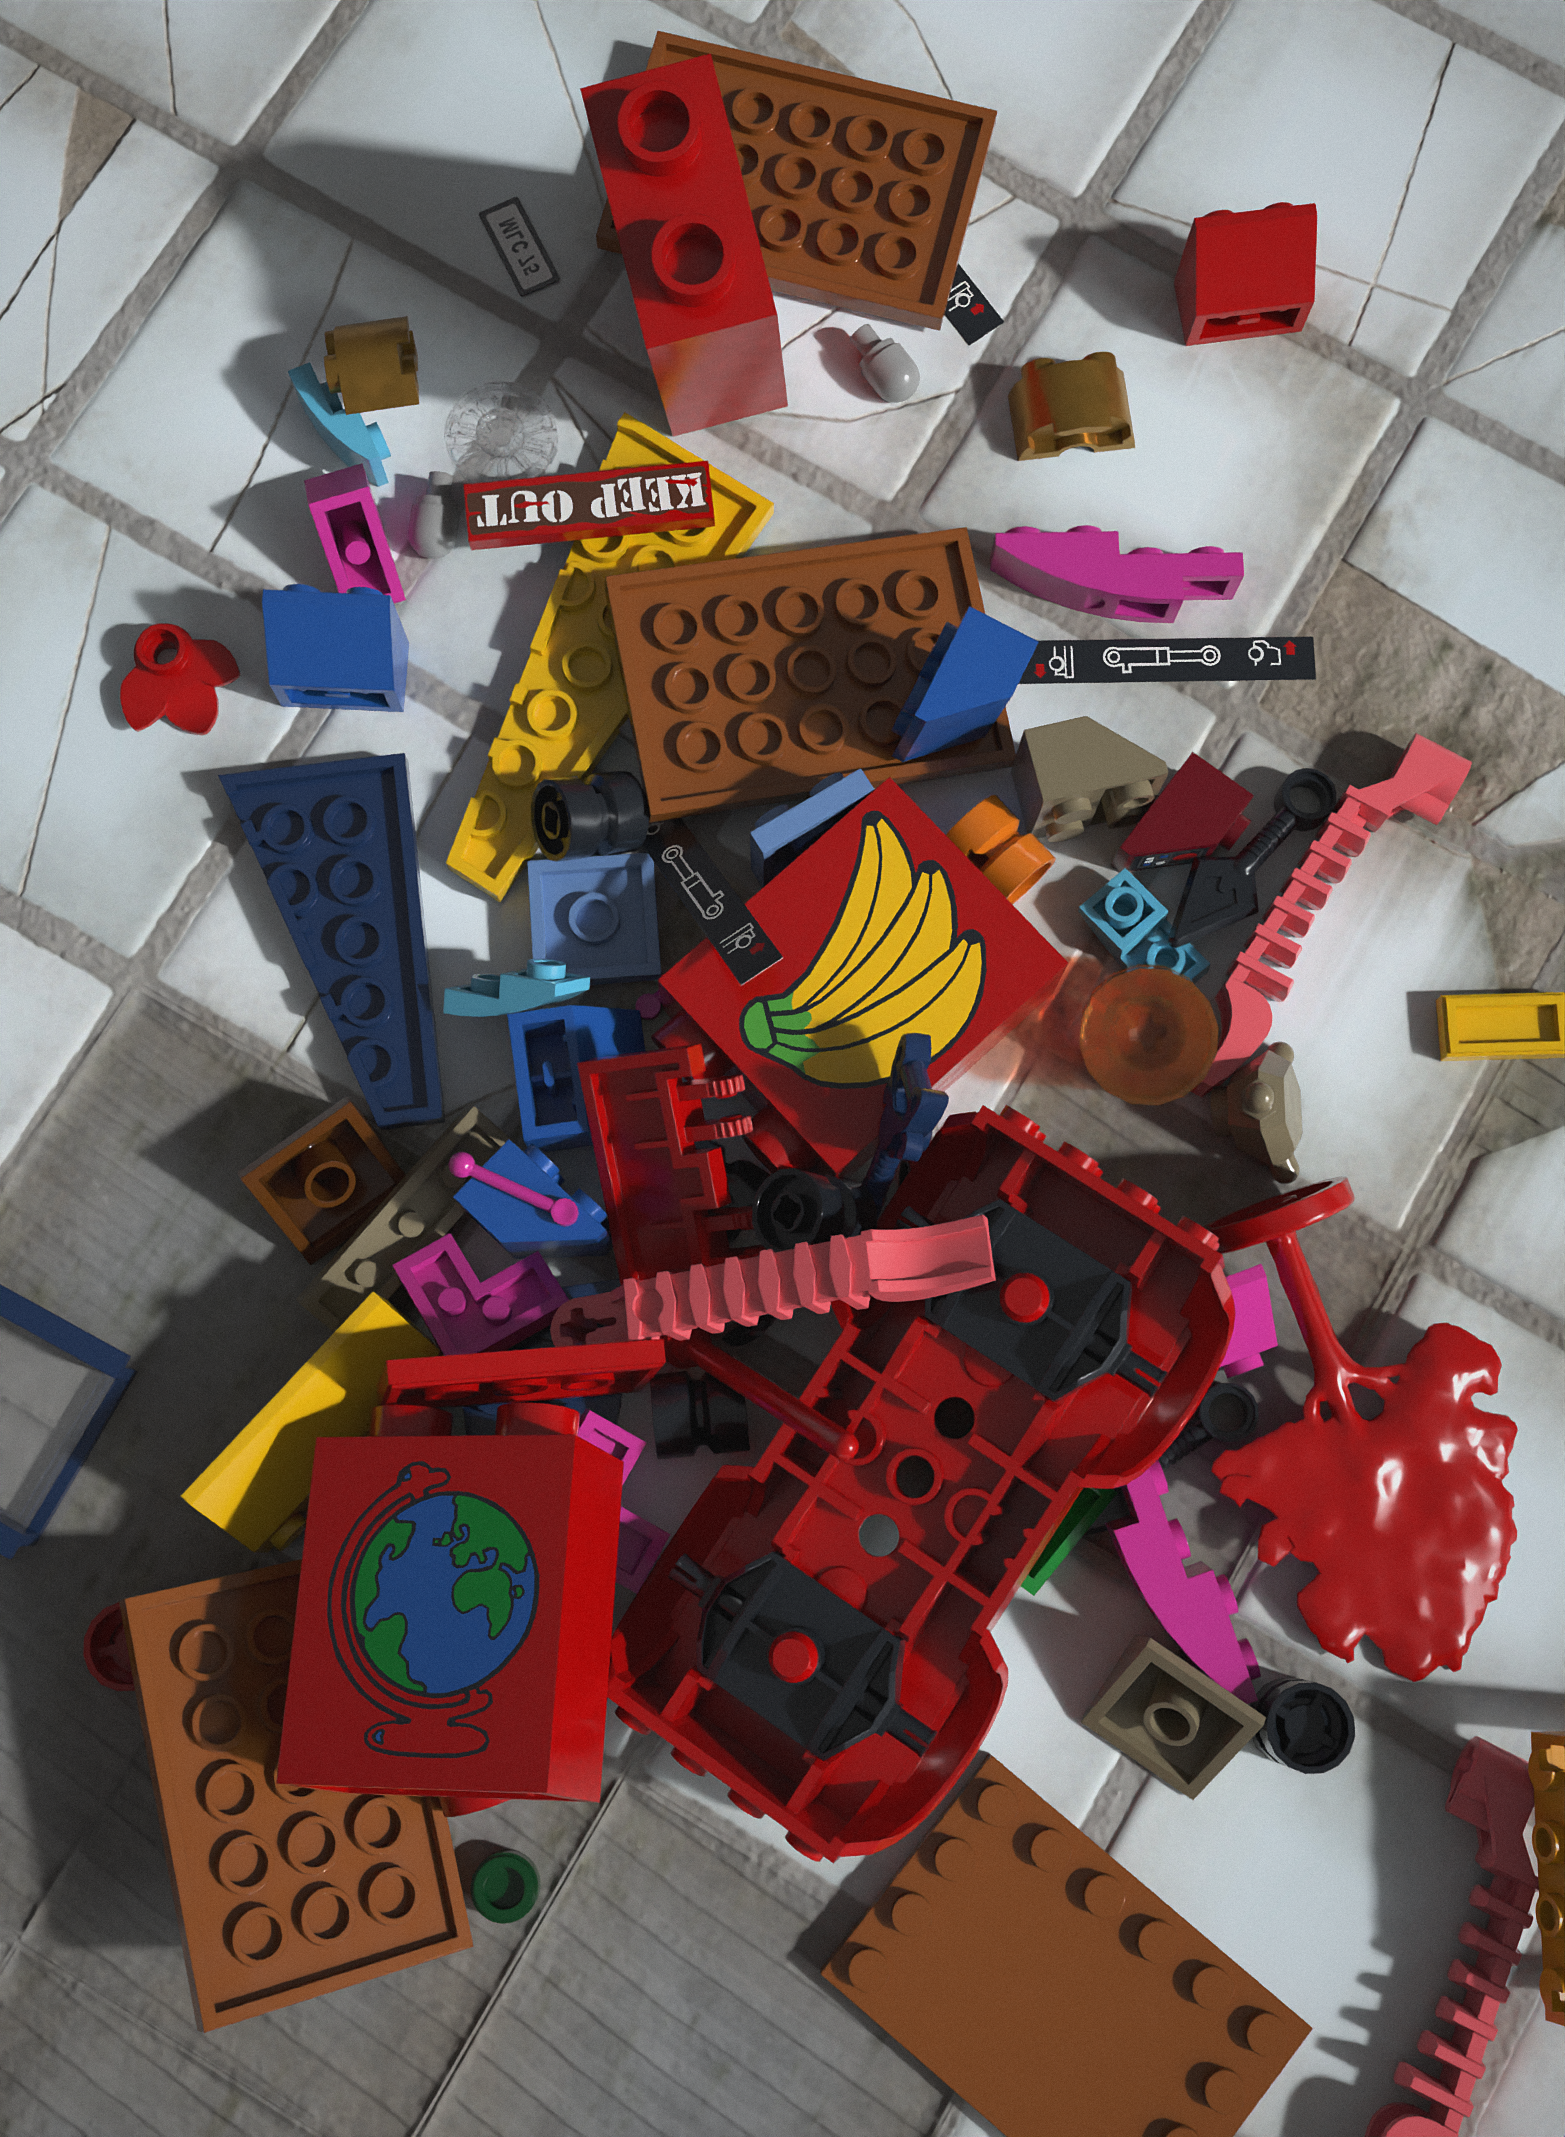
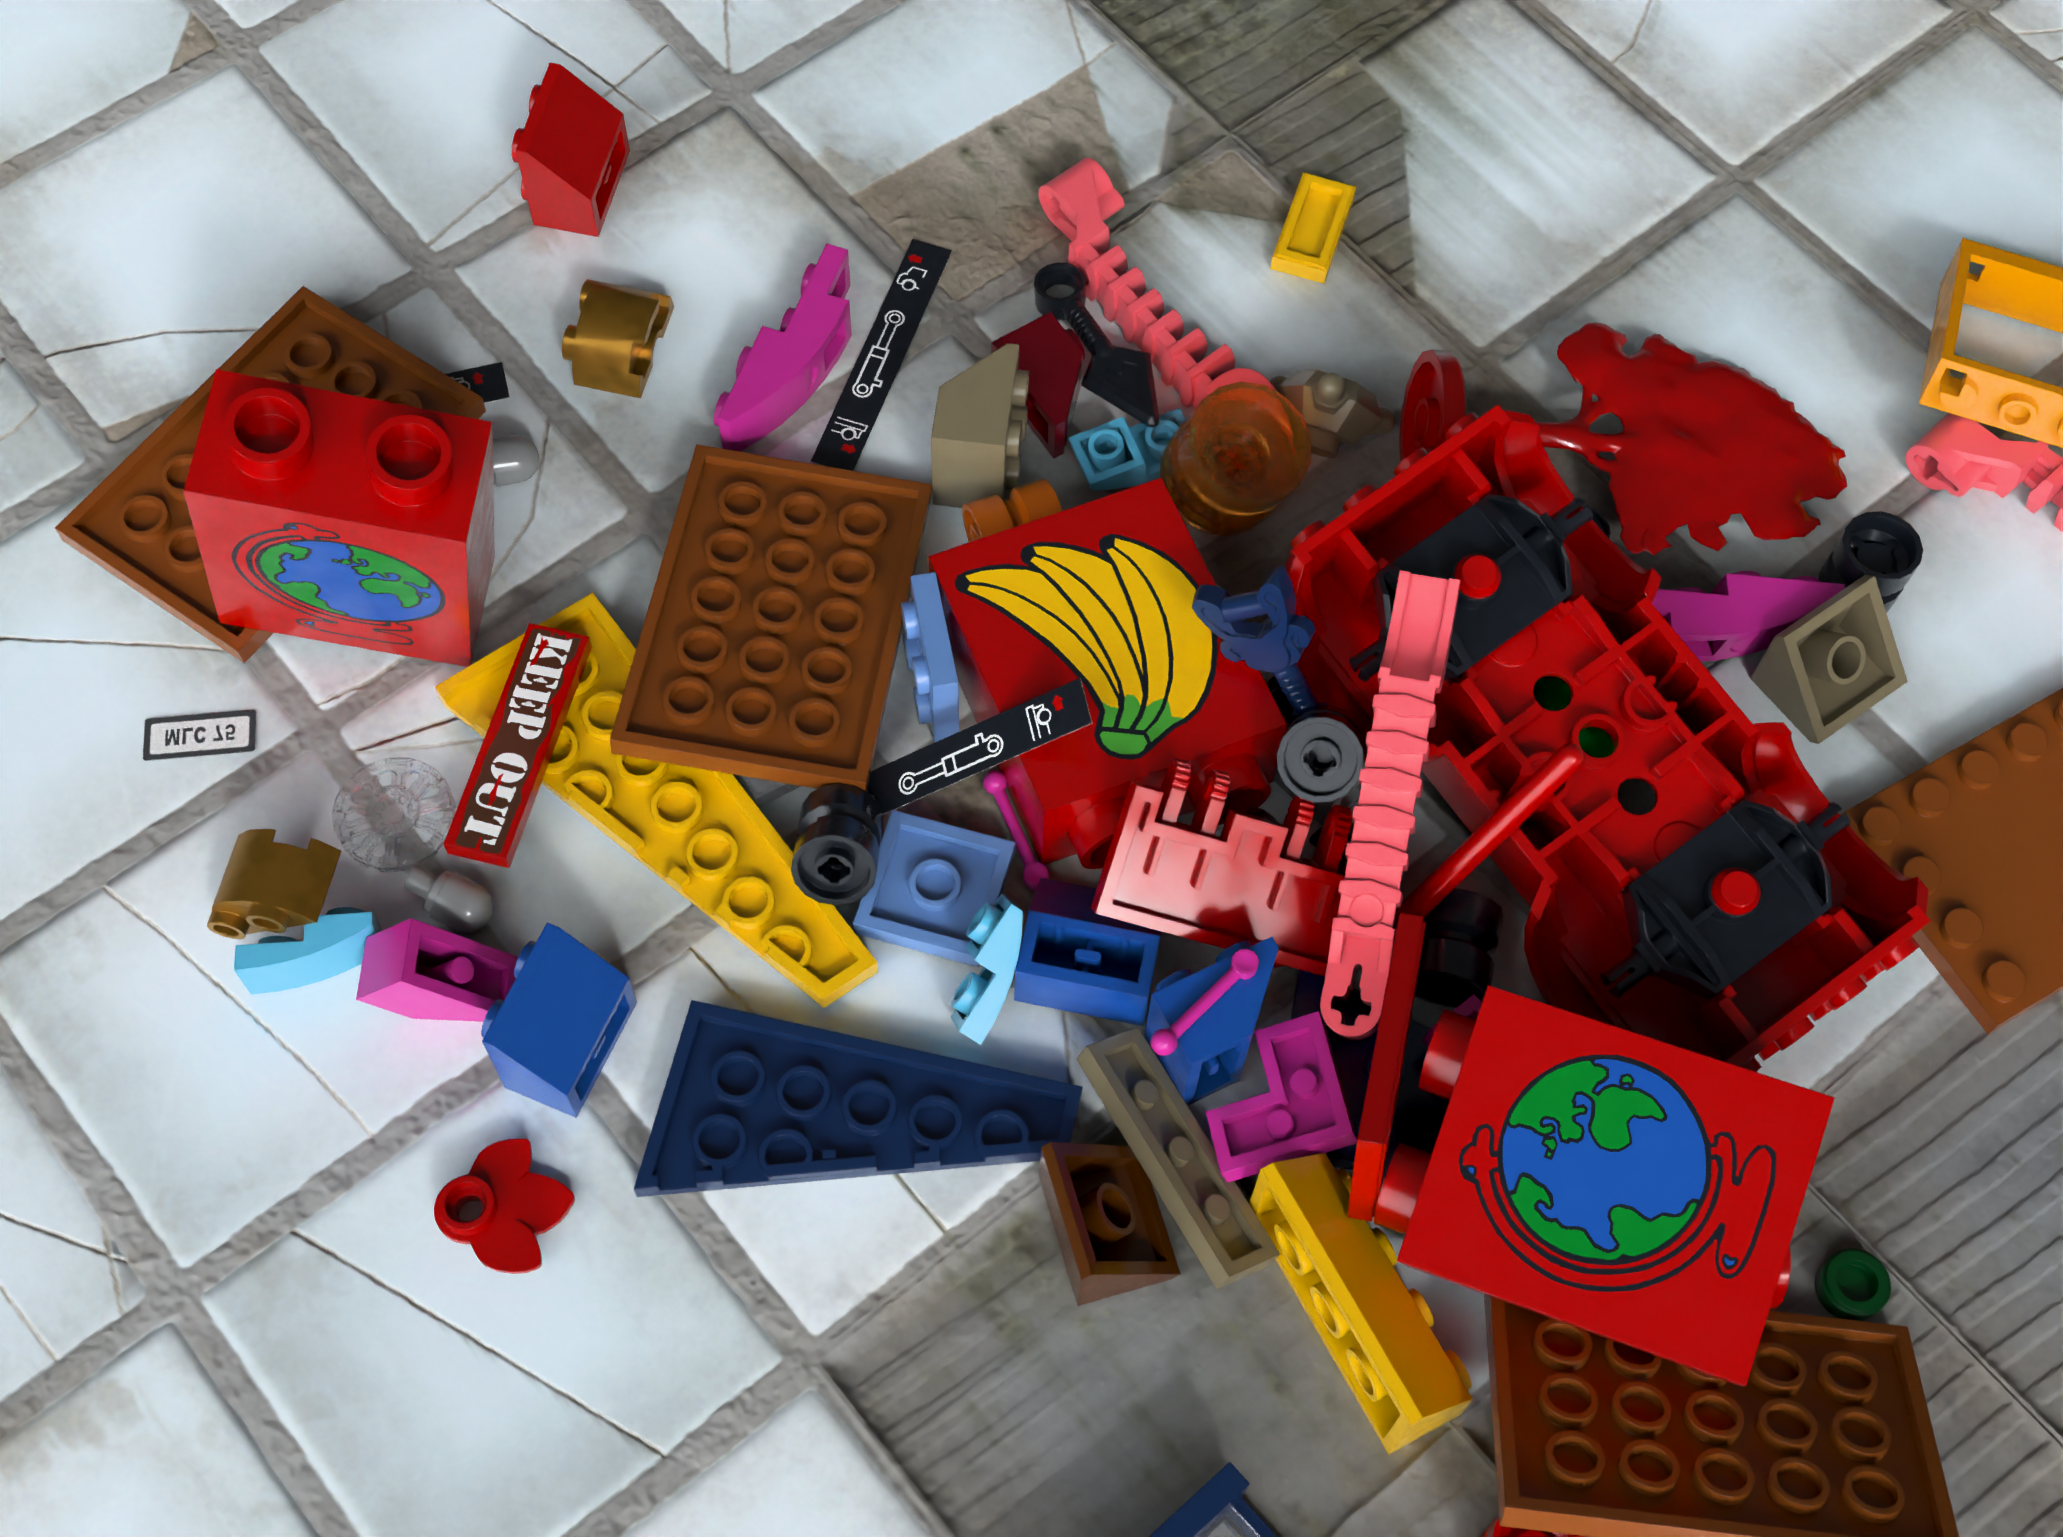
camera: 70 degrees left, 15 degrees down
(962, 685) = (859, 474): blue slope -> none

